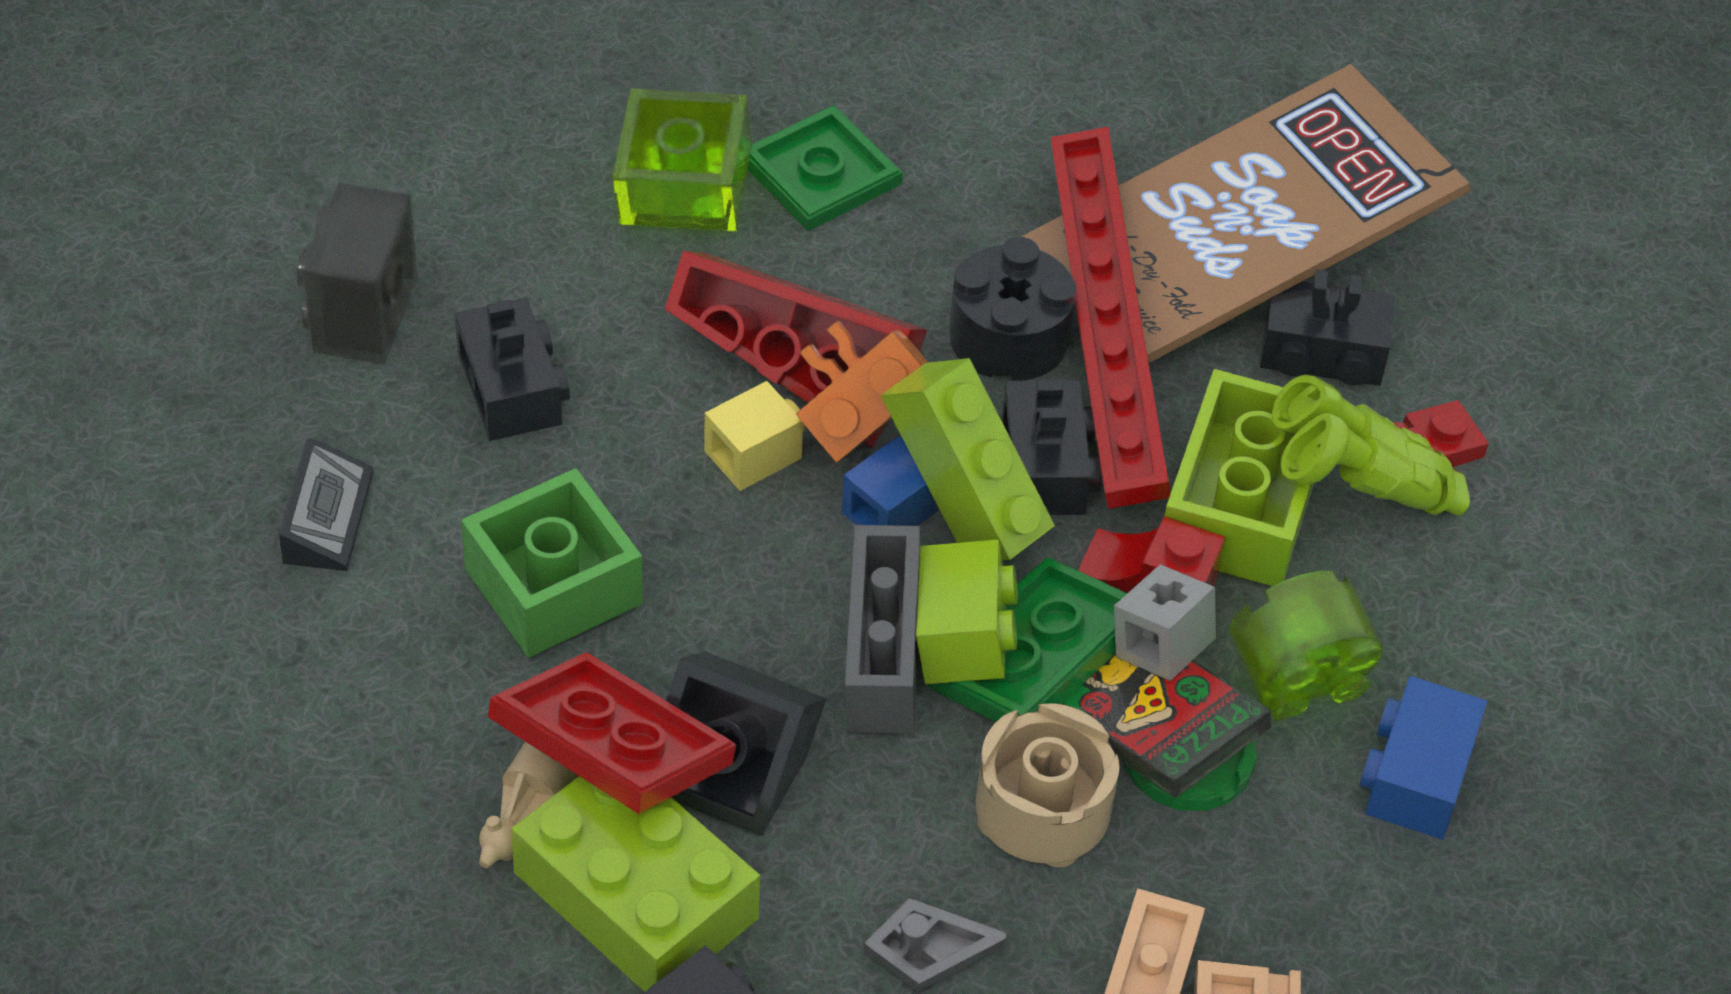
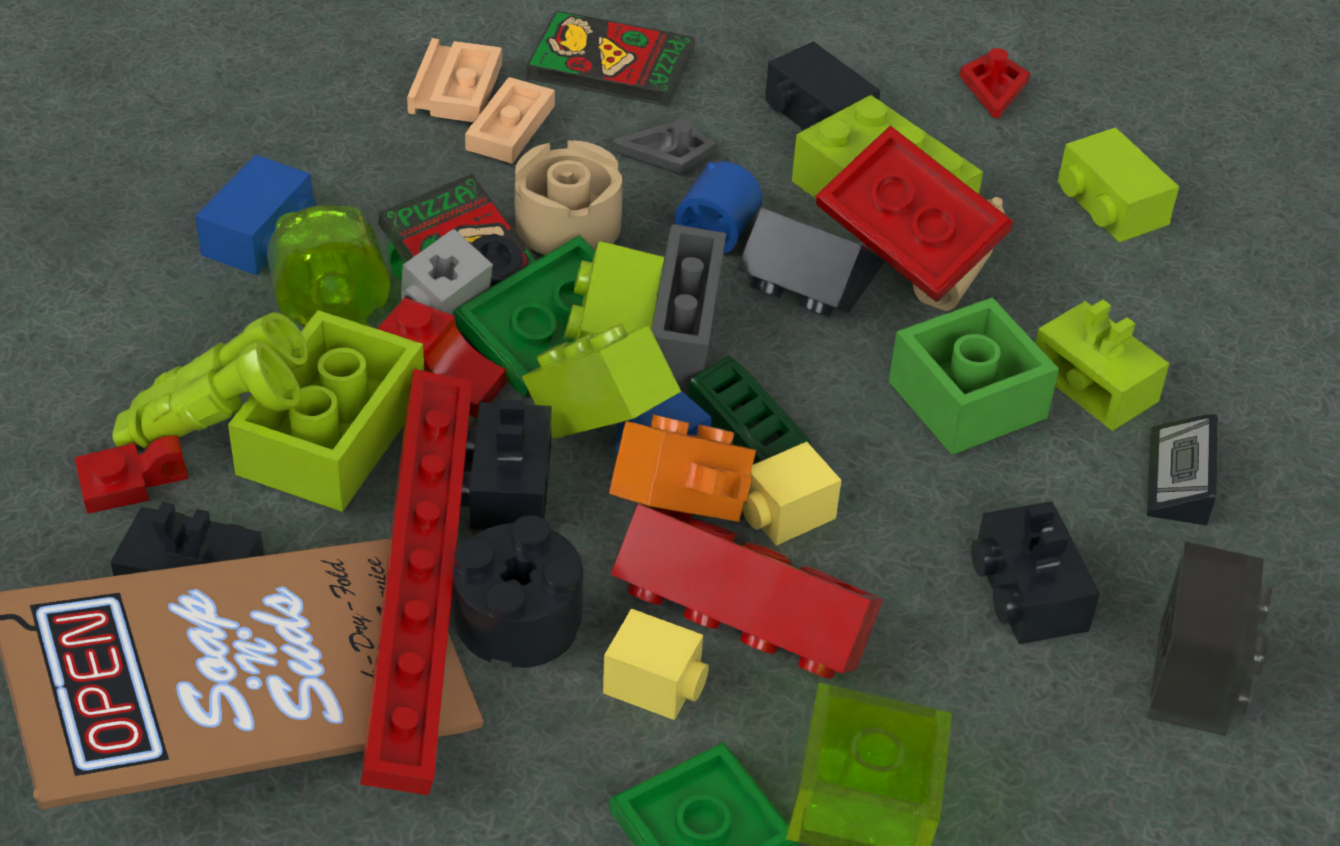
camera: 175 degrees left, 5 degrees down
(320, 896) = (1117, 184): none -> lime brick
(396, 612) = (1103, 363): none -> lime brick
(817, 573) = (730, 384): none -> dark green slope
(855, 800) = (721, 201): none -> blue piece
(876, 265) = (654, 665): none -> light yellow brick
(1118, 679) = (502, 254): none -> black tile

